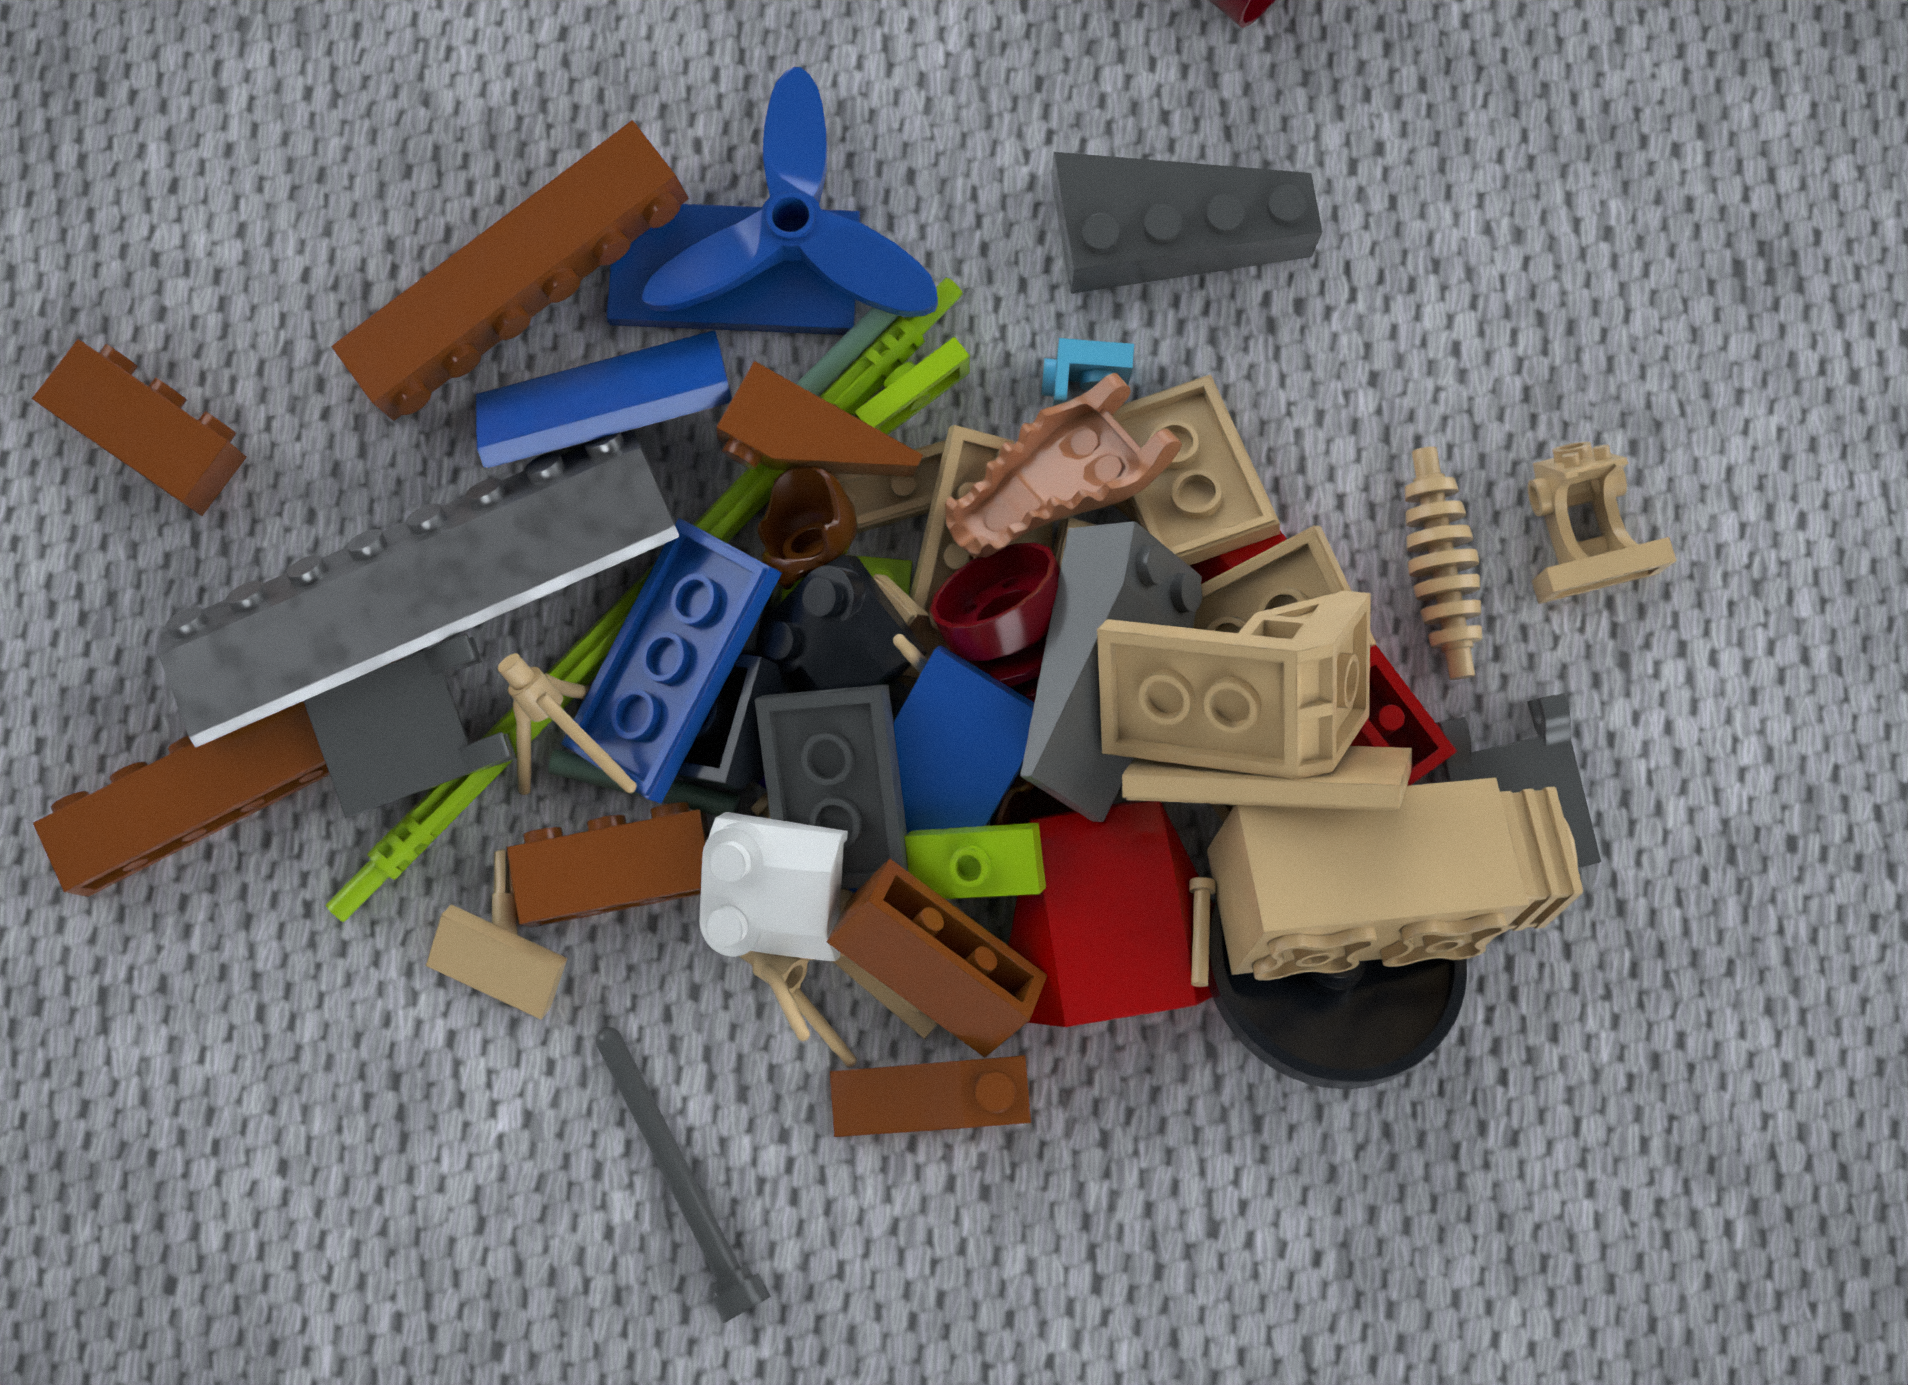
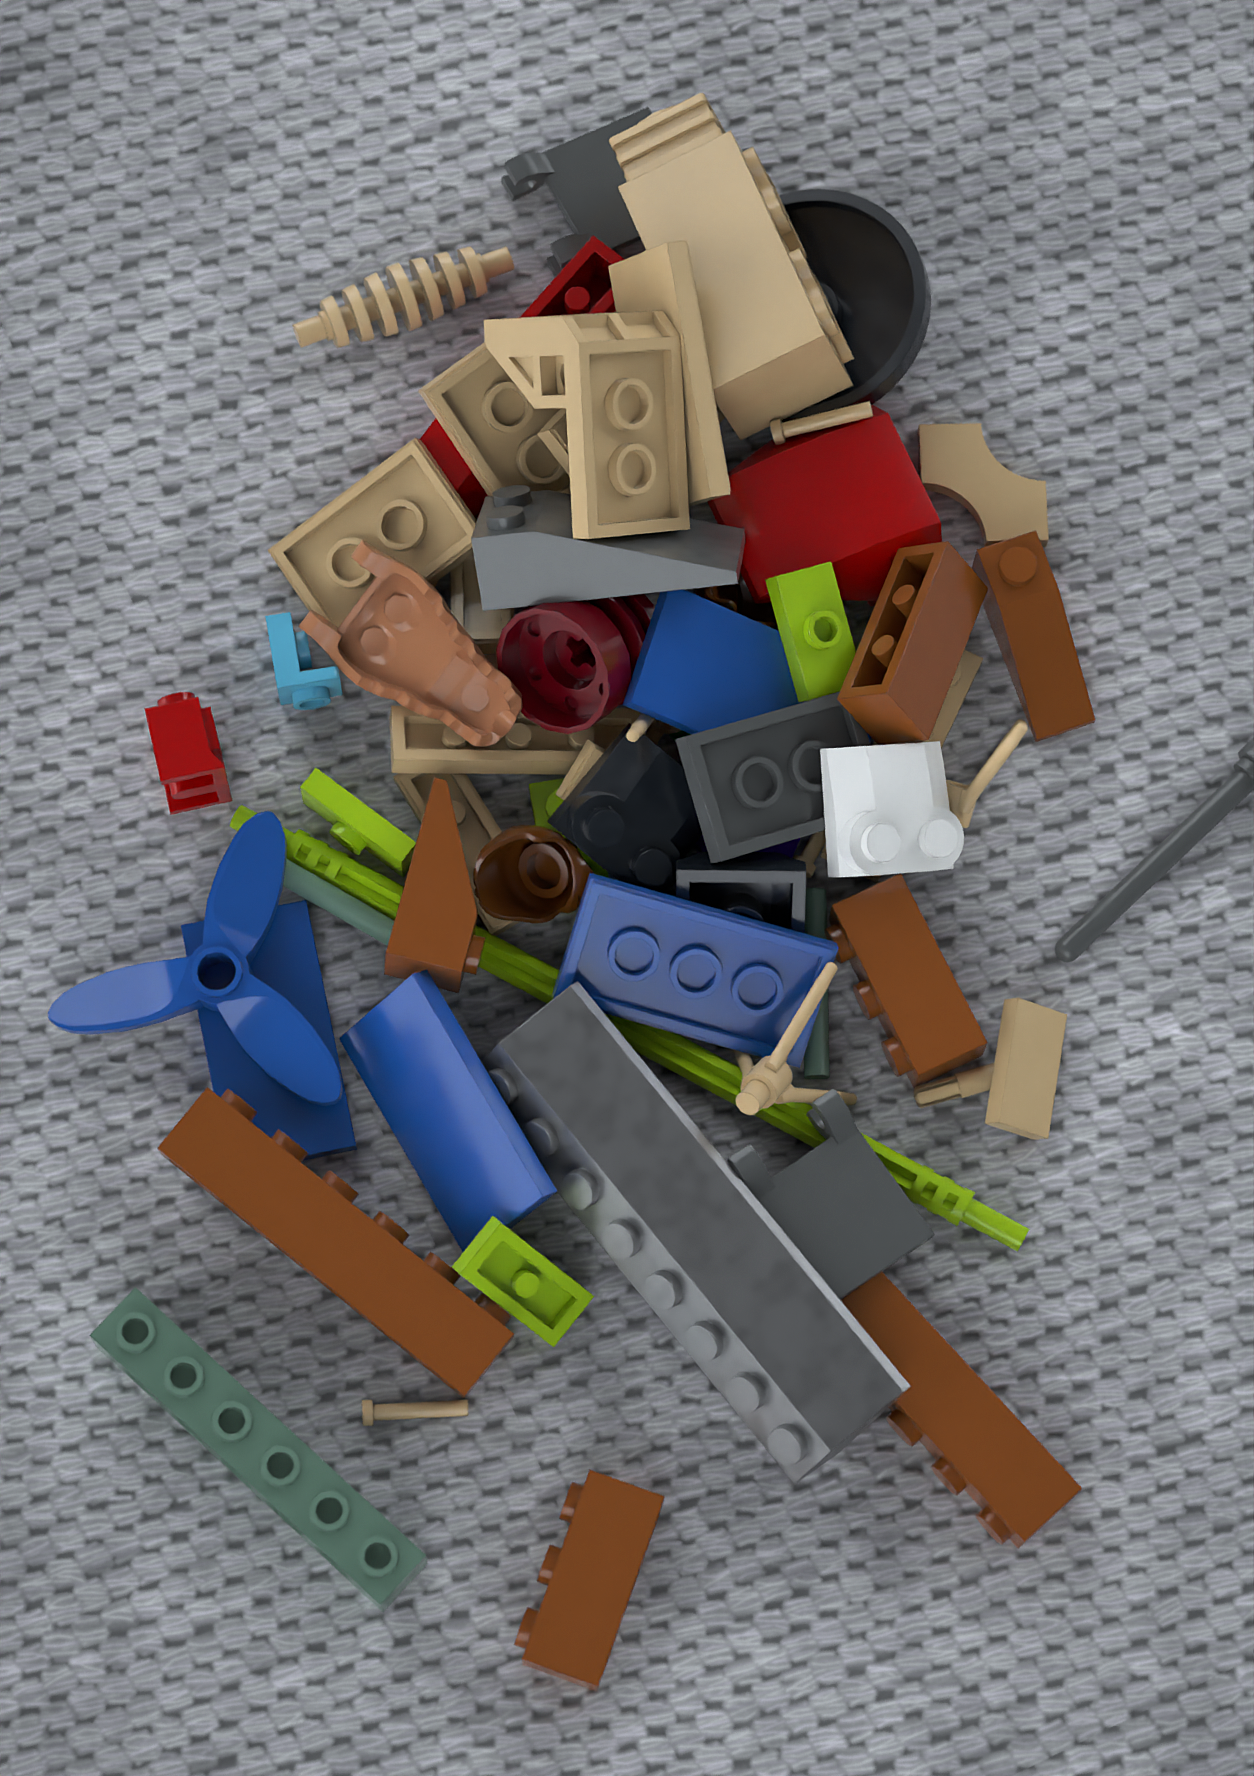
camera: 110 degrees left, 5 degrees down
(346, 164) = (259, 1449): none -> sand green brick
(361, 278) = (412, 1410): none -> tan piece
(426, 429) = (522, 1281): none -> lime plate
(1016, 238) = (187, 753): none -> red window
(1136, 1076) = (962, 467): none -> tan tile
(1176, 219) = (119, 611): dark grey wedge -> none
(1579, 477) = (362, 162): tan tile -> none

